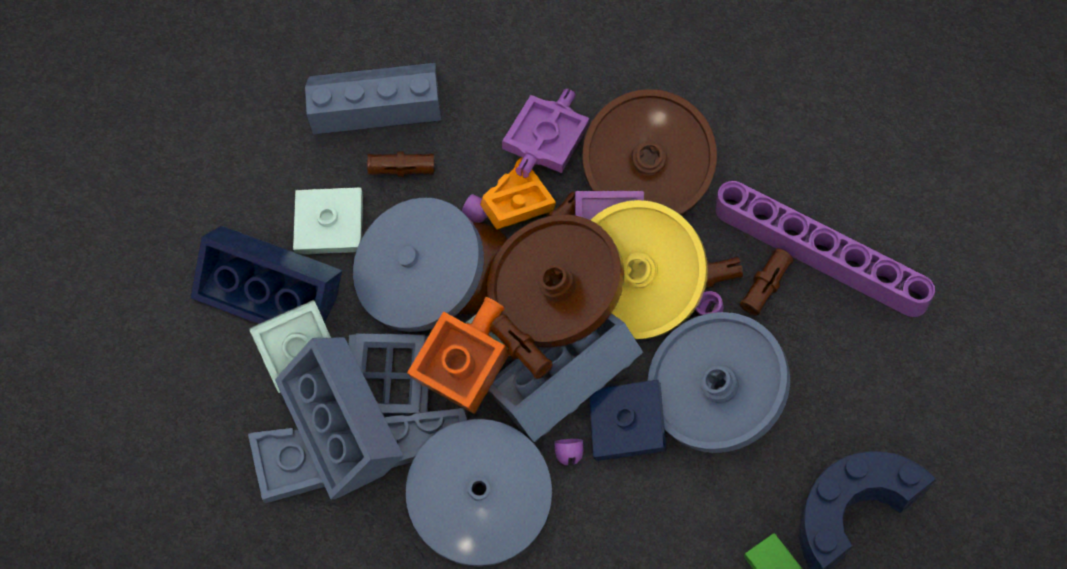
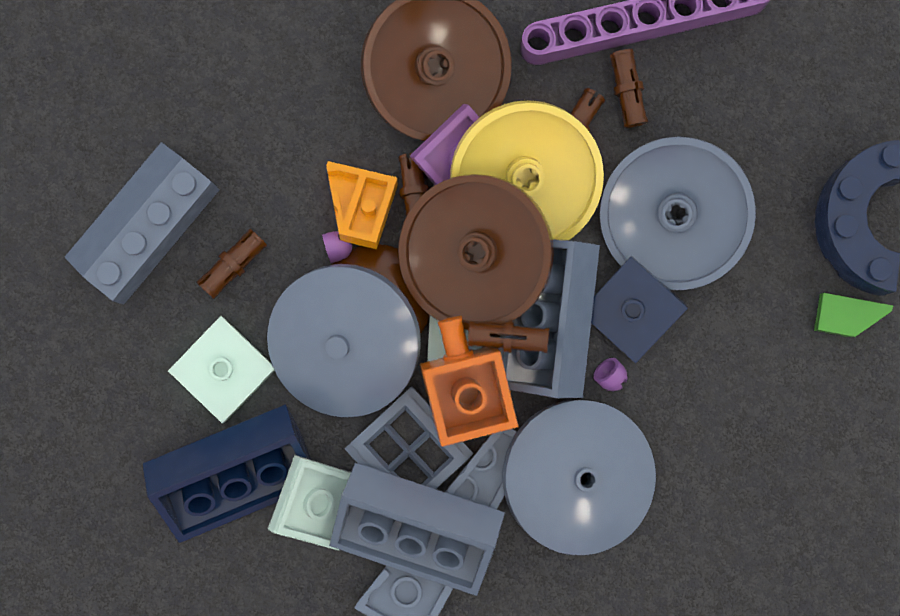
camera: 50 degrees left, 20 degrees up
(546, 133) = (326, 122): medium lavender plate -> none
(705, 303) = (613, 148): medium lavender hinge -> none

